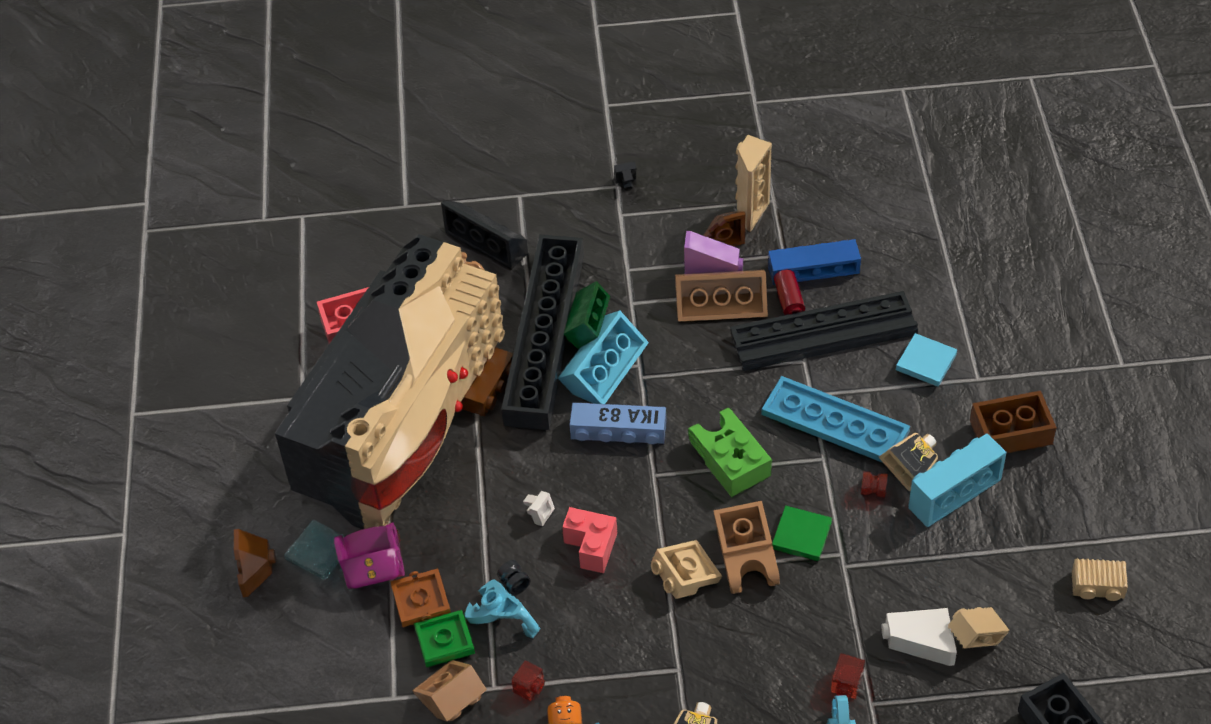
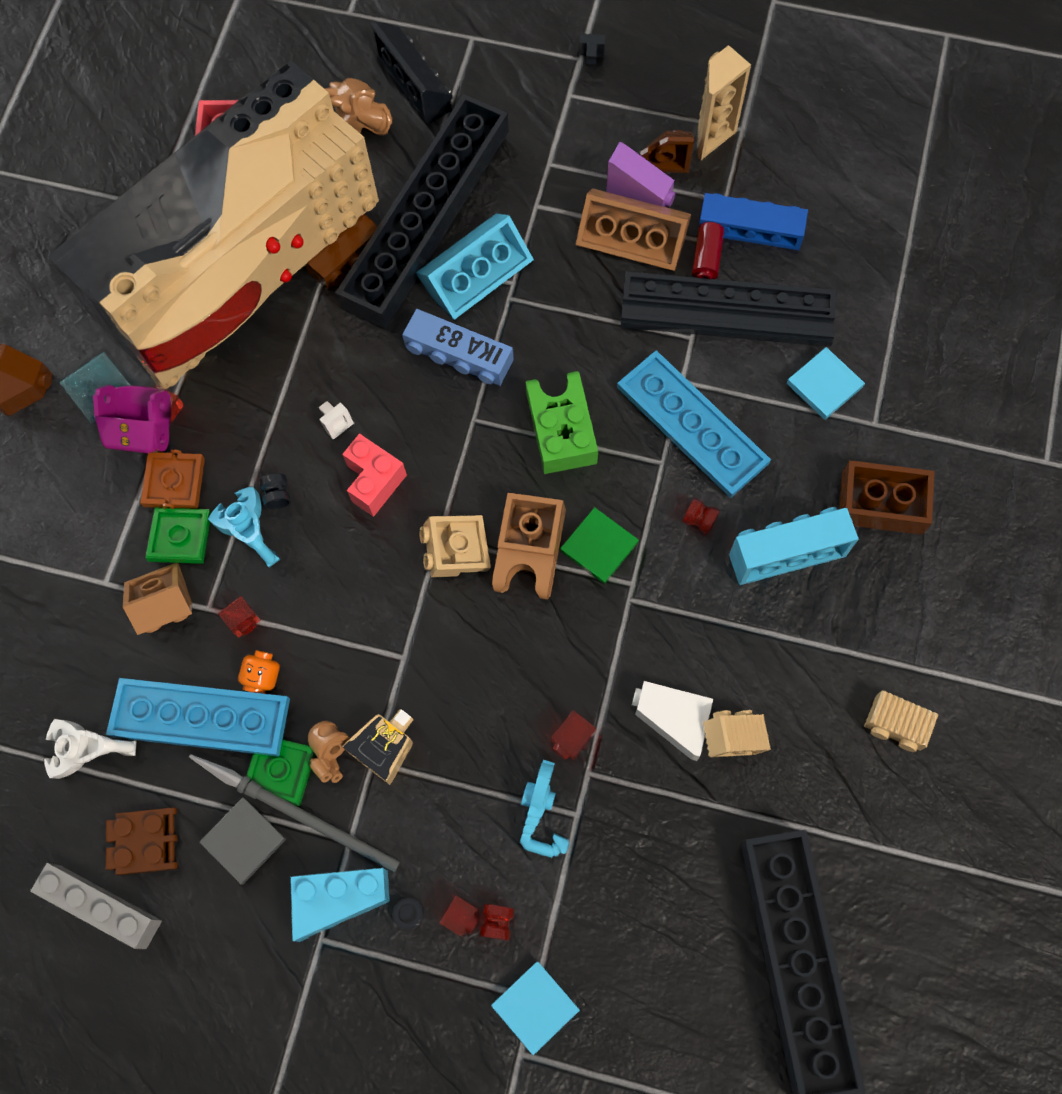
camera: 20 degrees right, 20 degrees up
(586, 315) = (475, 207): dark green brick -> none
(910, 457) = (754, 501): torso -> none

